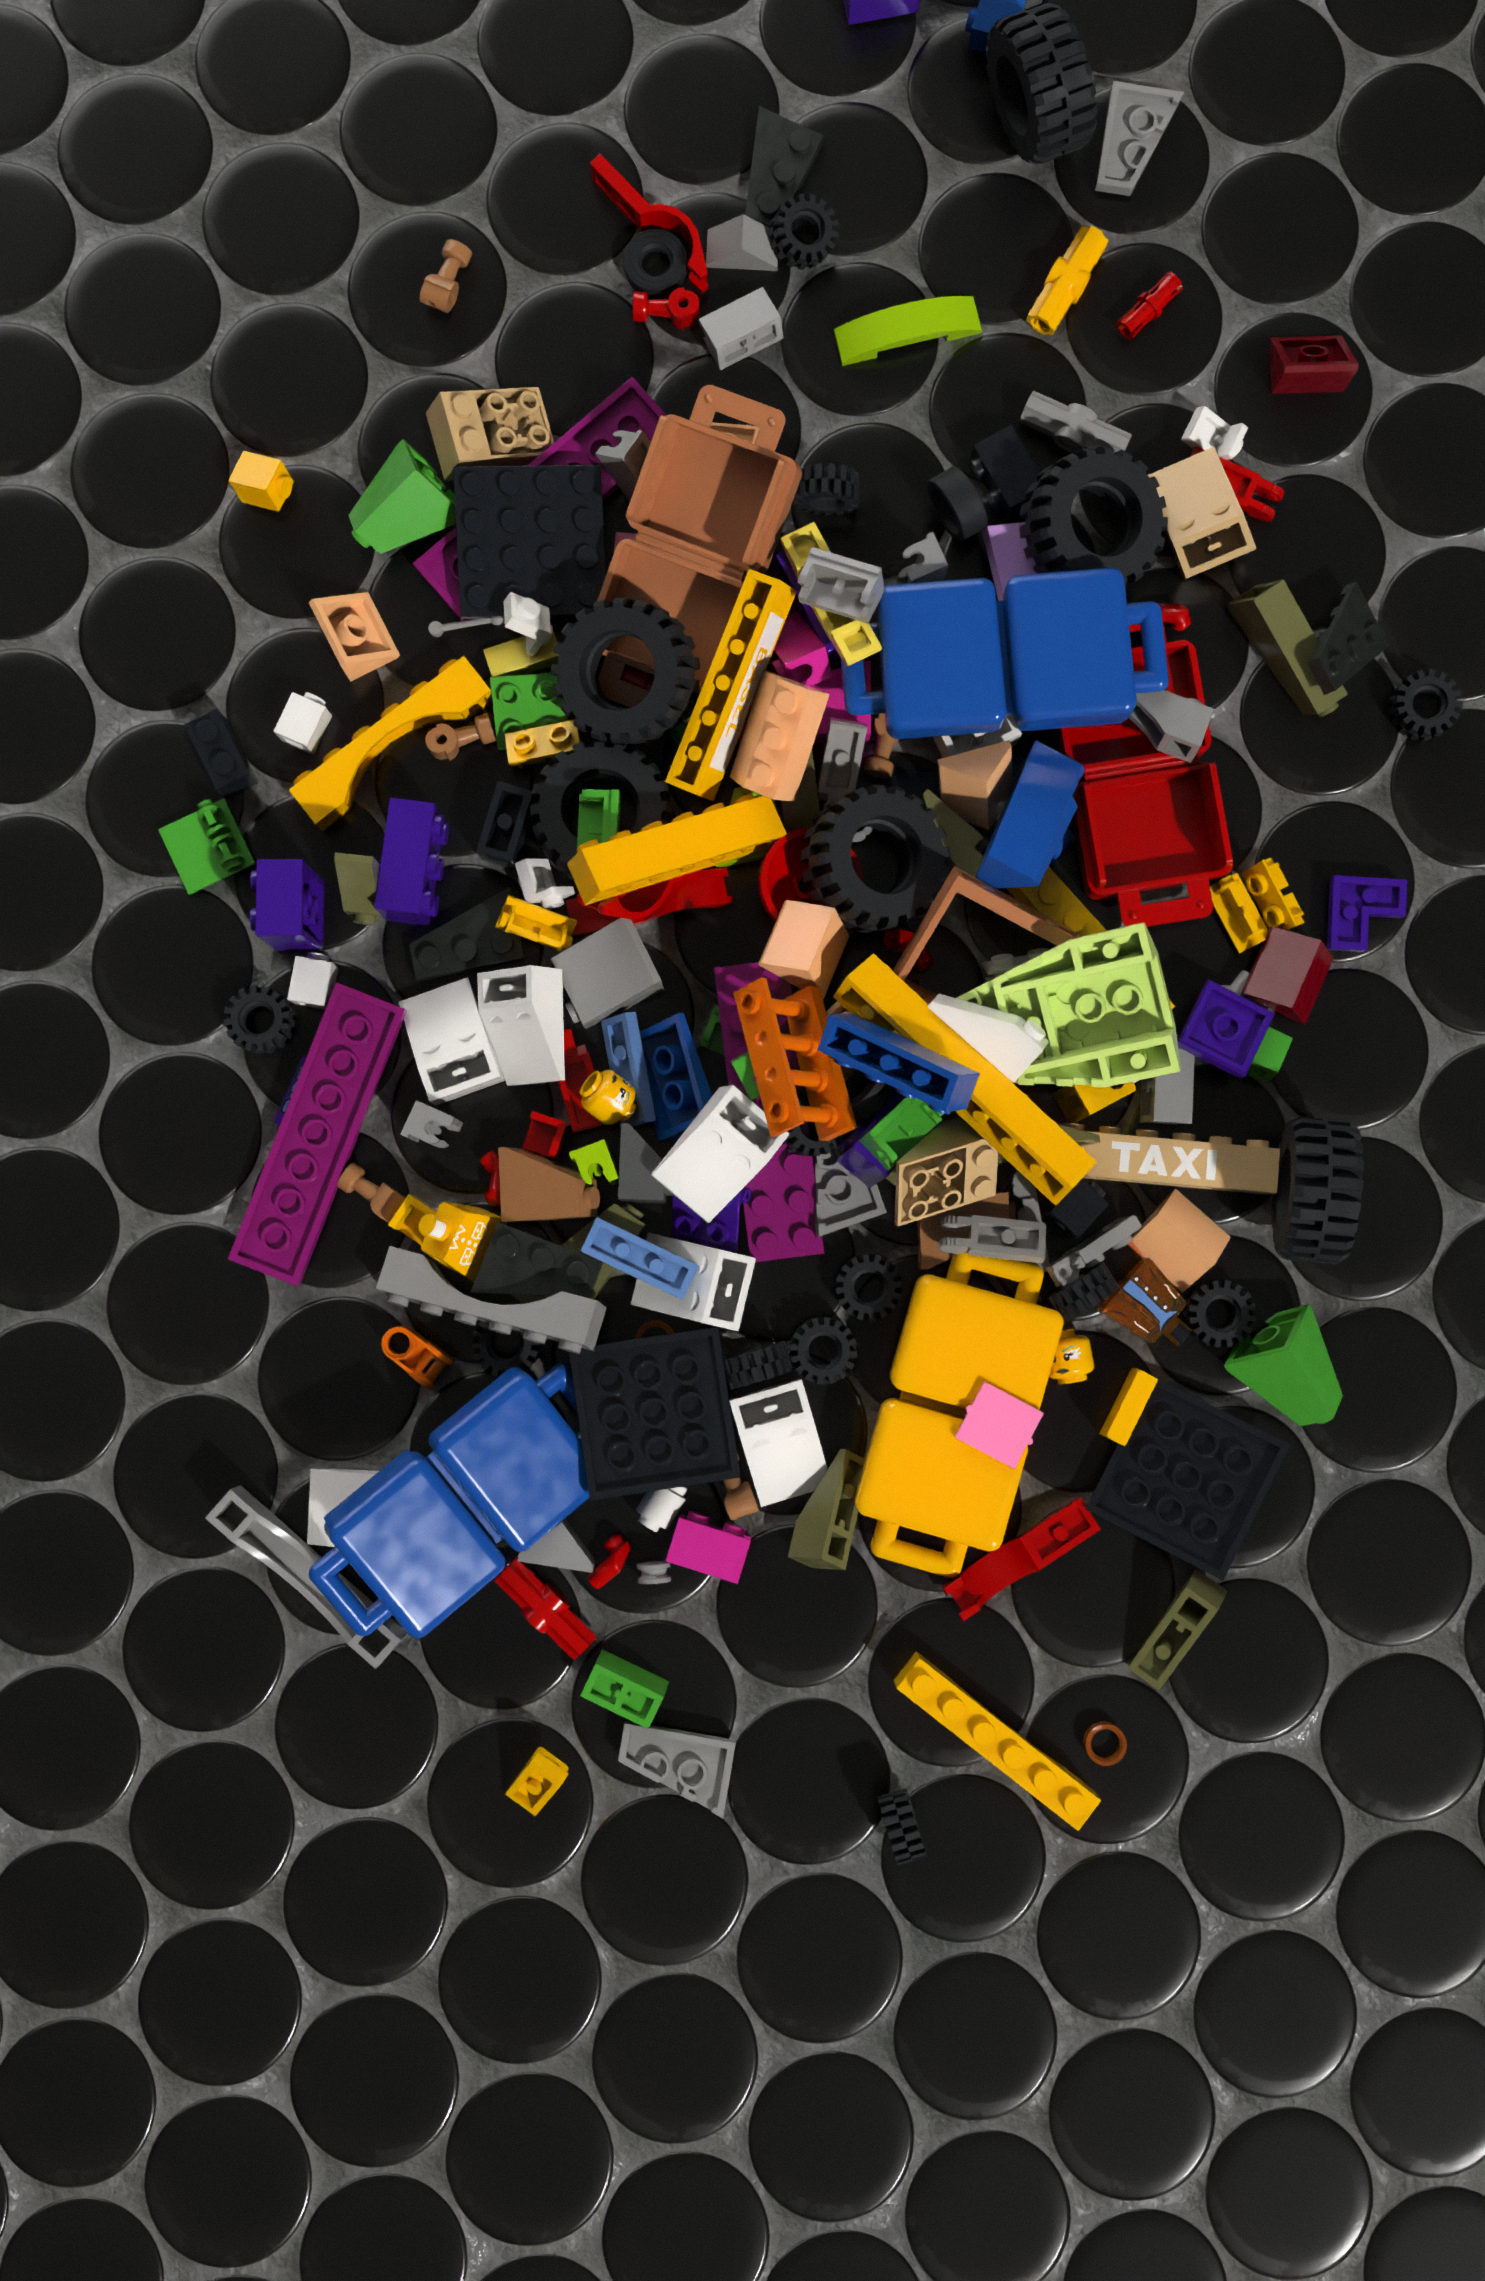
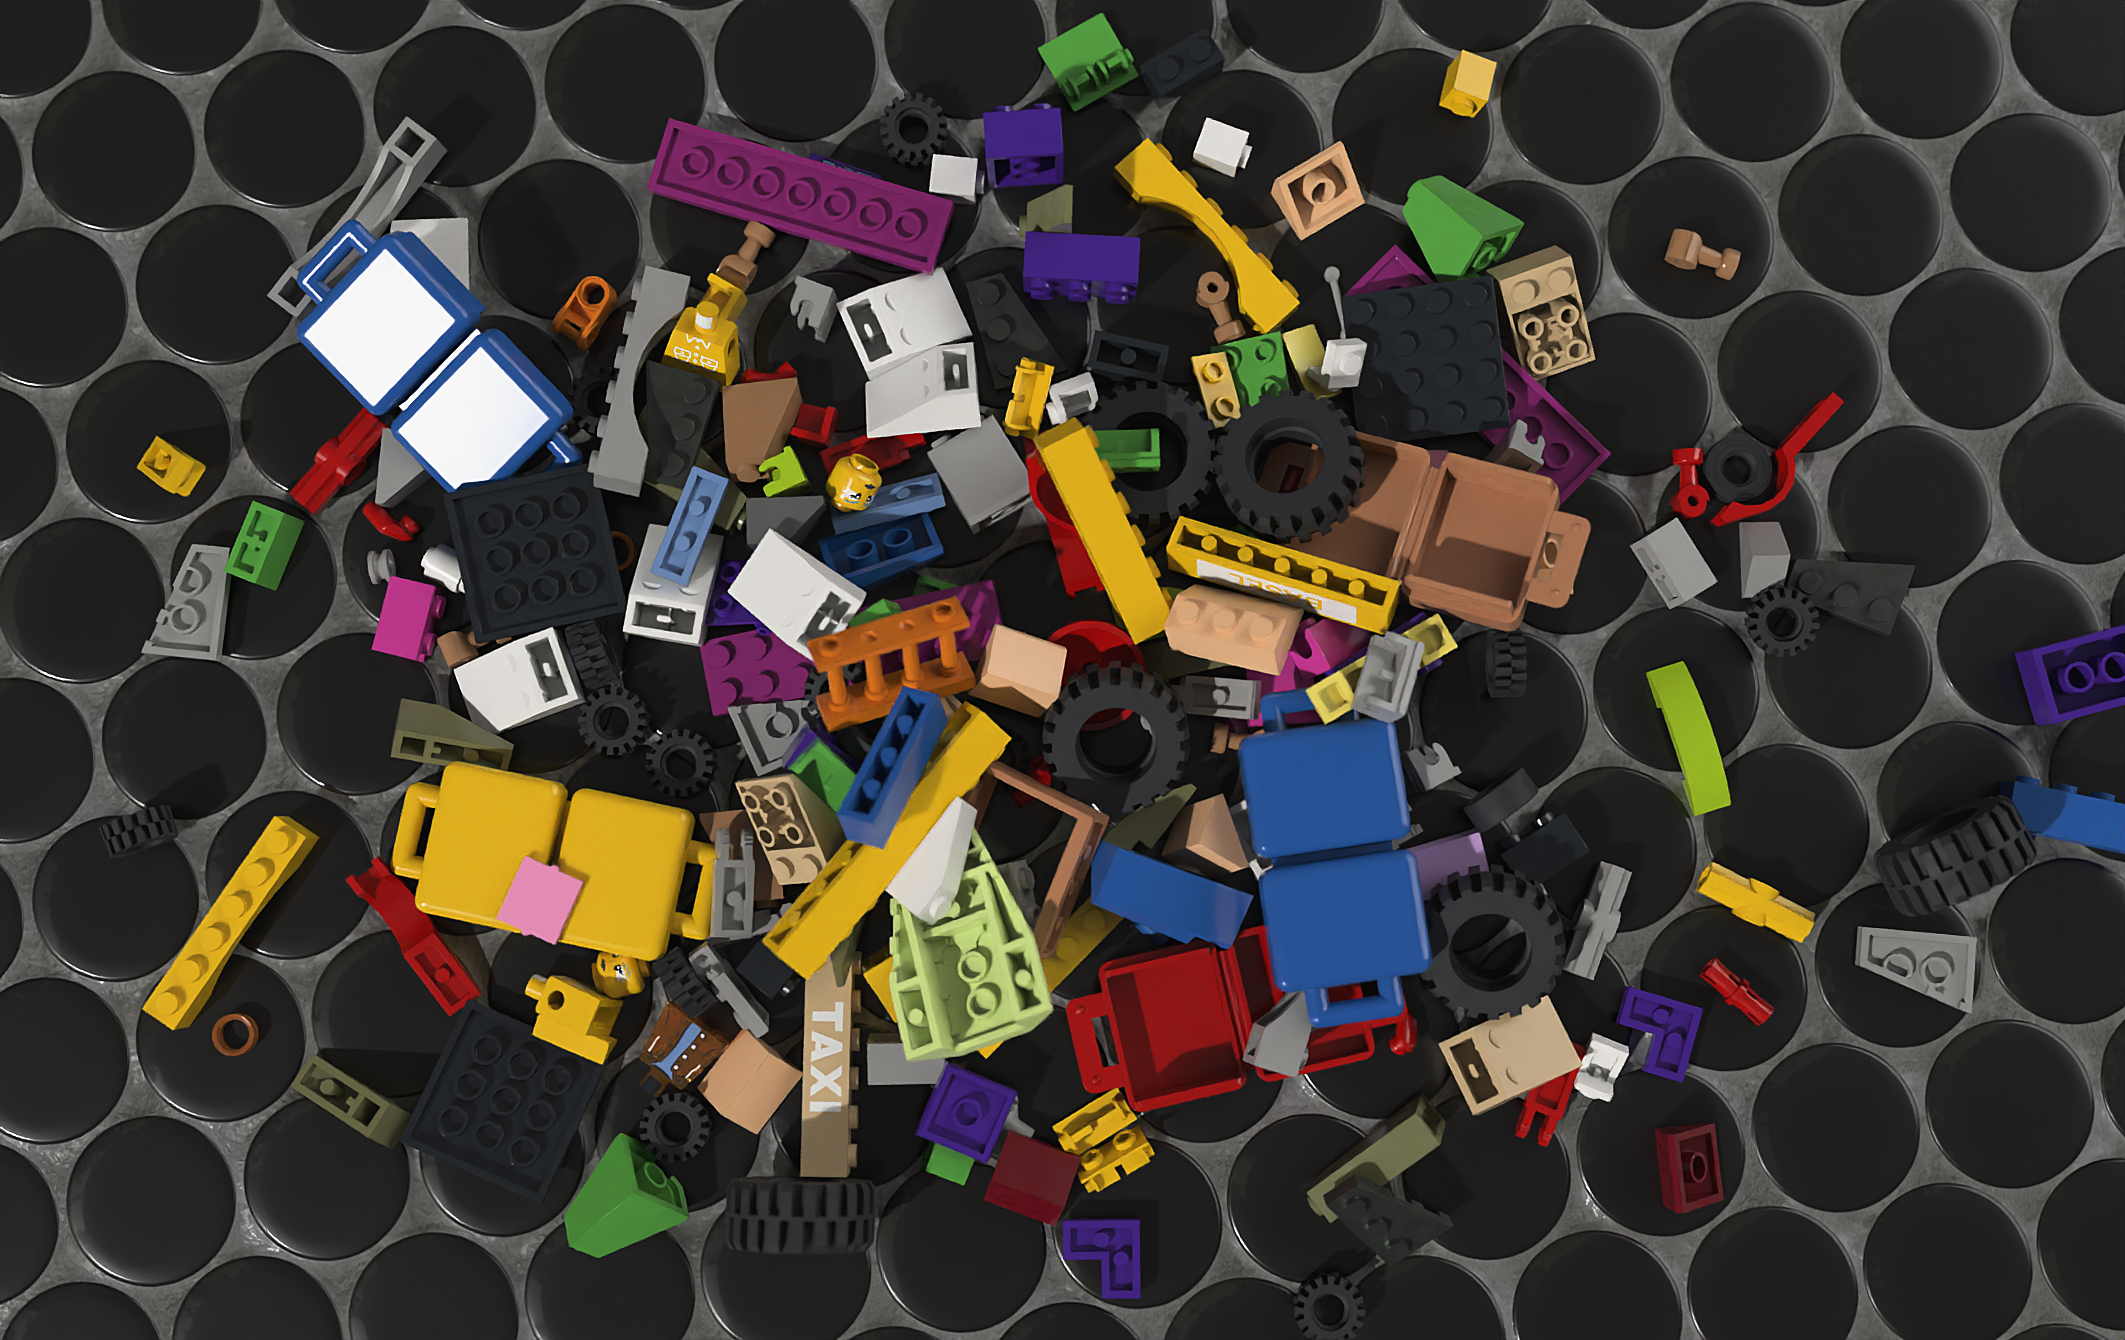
camera: 85 degrees right, 0 degrees up
(1103, 1390) = (574, 1004): none -> yellow torso
(1179, 367) = (1672, 1030): none -> dark purple plate

